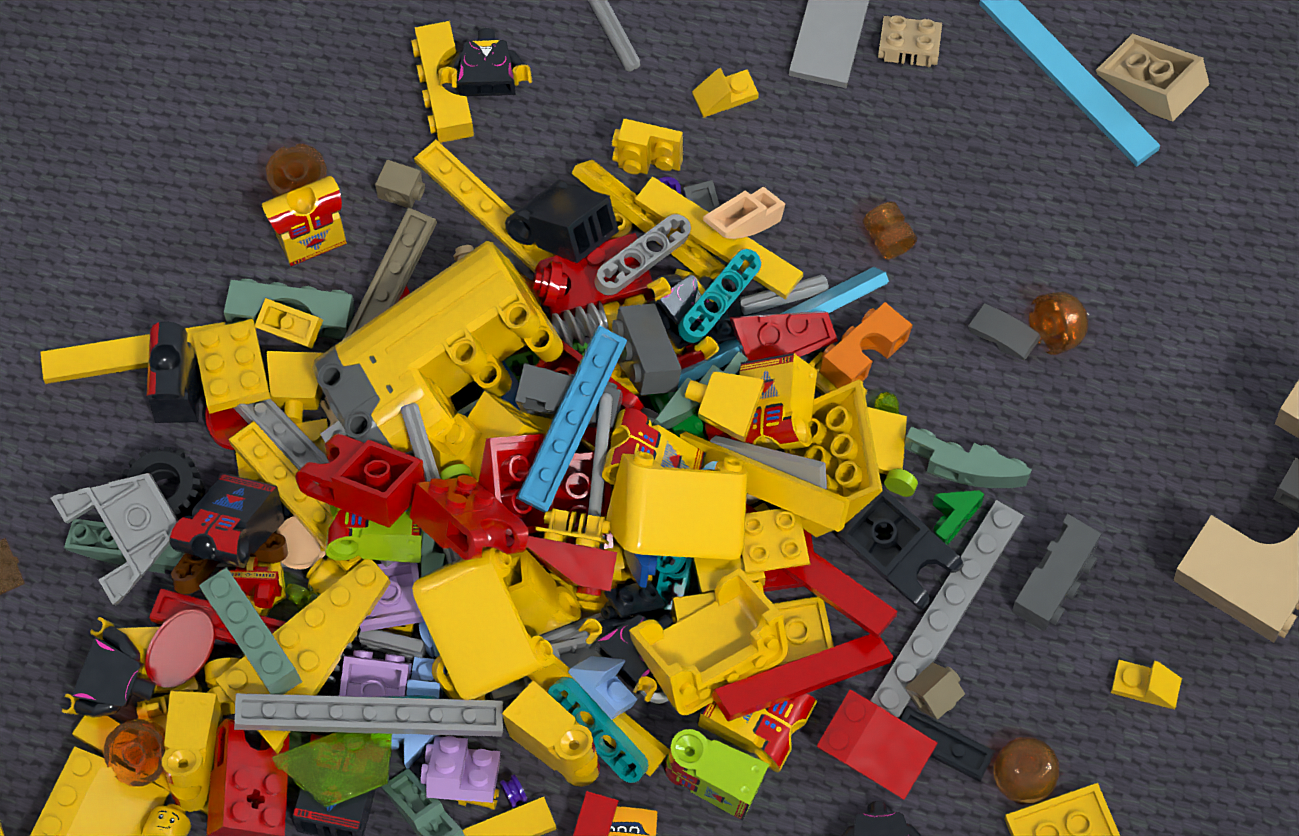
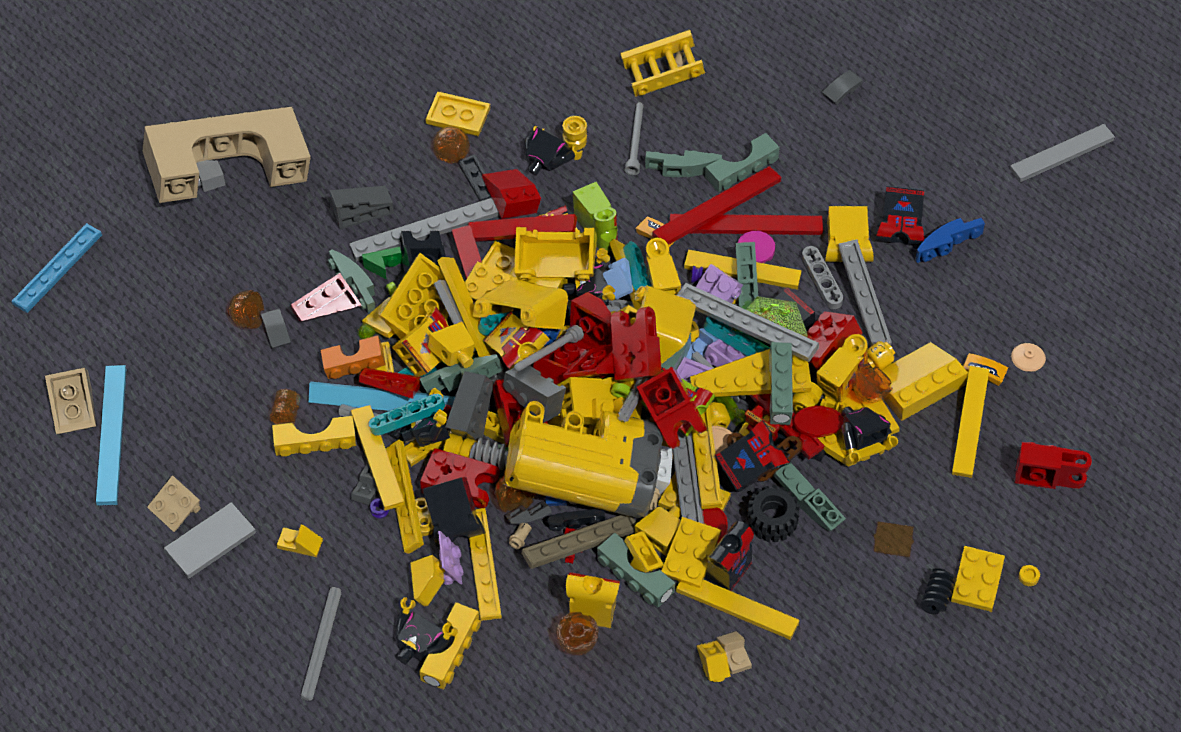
camera: 145 degrees left, 10 degrees down
(102, 292) = (736, 654): none -> tan slope
(117, 261) = (714, 661): none -> yellow slope
(136, 519) = (800, 492): light grey wing -> none
(400, 184) = (522, 601): dark tan brick -> none
(522, 168) = (450, 556): none -> lavender hinge
(534, 136) = (426, 578): none -> yellow slope
(550, 283) = (489, 474): red plate -> none
(558, 528) = (585, 321): yellow hinge -> none
(571, 419) = (542, 368): dark azure tile -> none
(640, 252) = (428, 462): light grey beam -> none
(646, 144) = (374, 525): yellow plate -> none
(746, 214) = (354, 453): light nougat slope -> none
(848, 198) = (337, 435): none -> yellow arch
(935, 690) = (462, 194): dark tan brick -> none
(972, 399) = (327, 299): none -> wedge
(1151, 685) = (364, 147): yellow slope -> none

